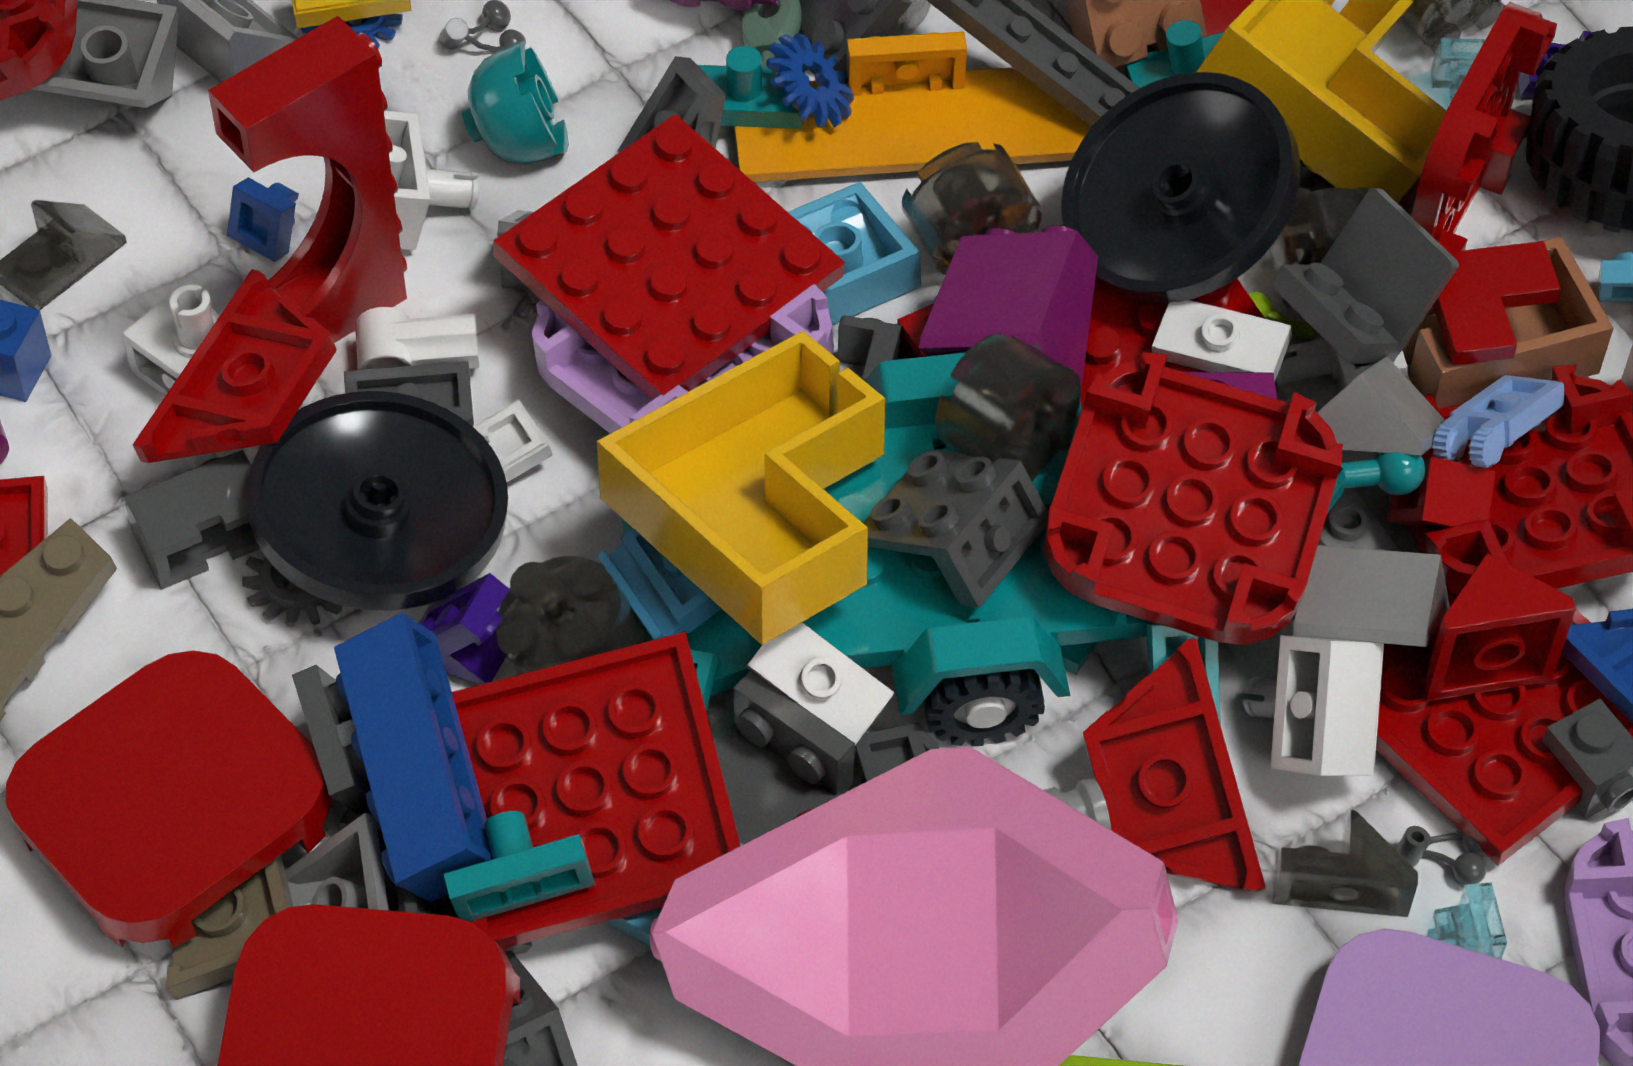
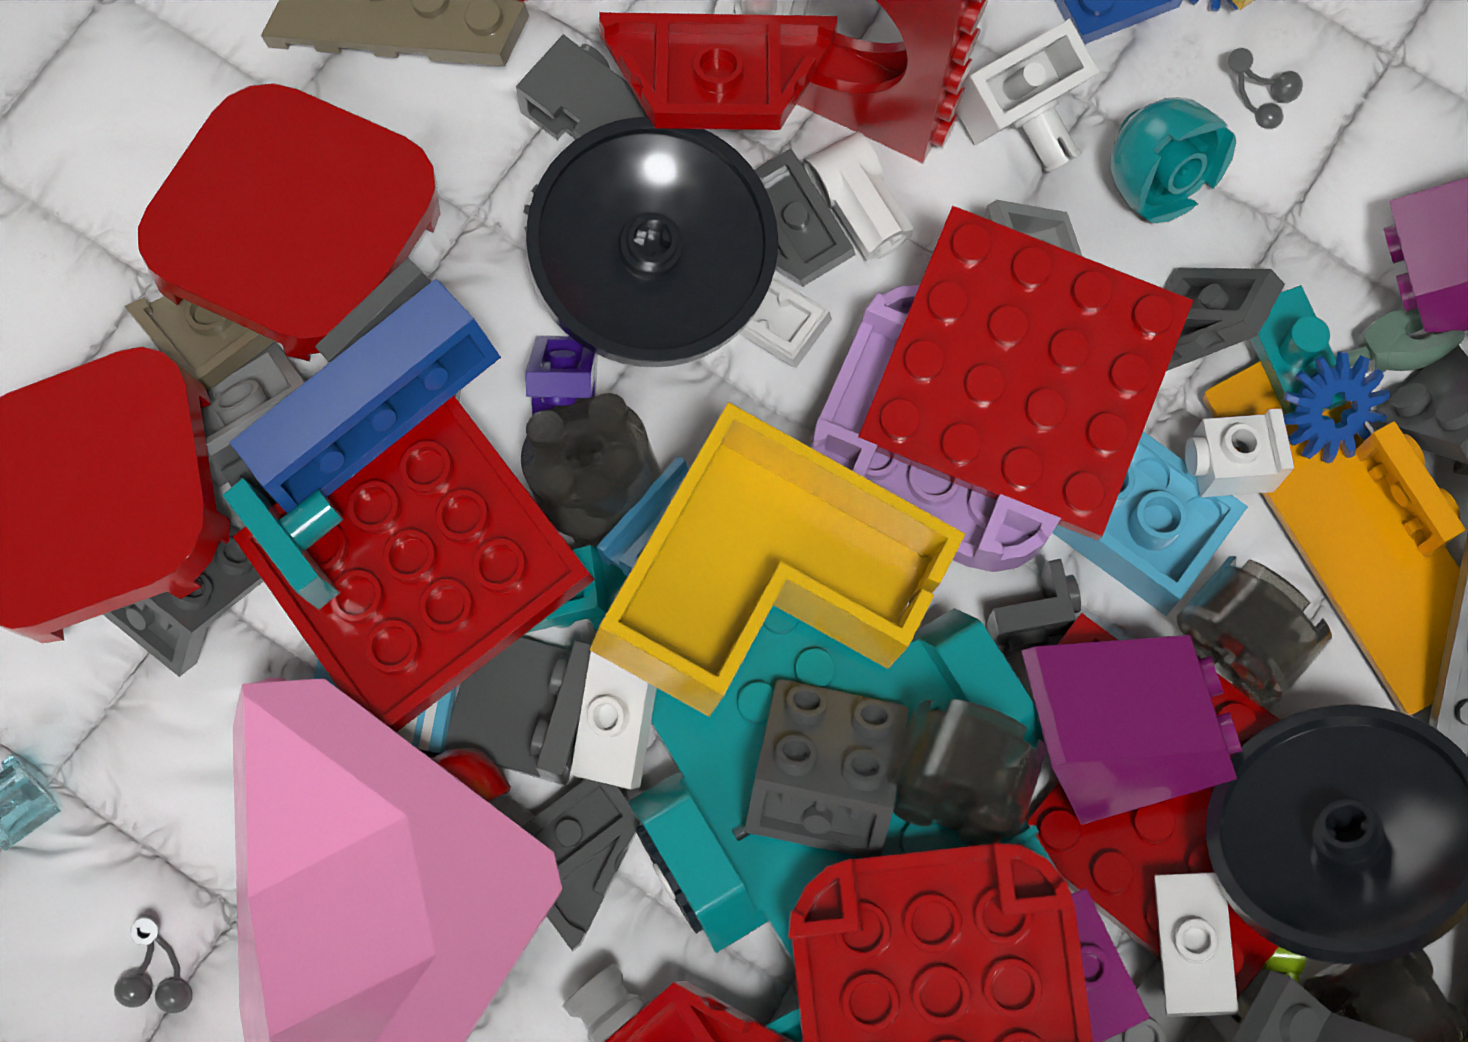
camera: 65 degrees right, 20 degrees up
(816, 158) = (1223, 470): none -> white brick

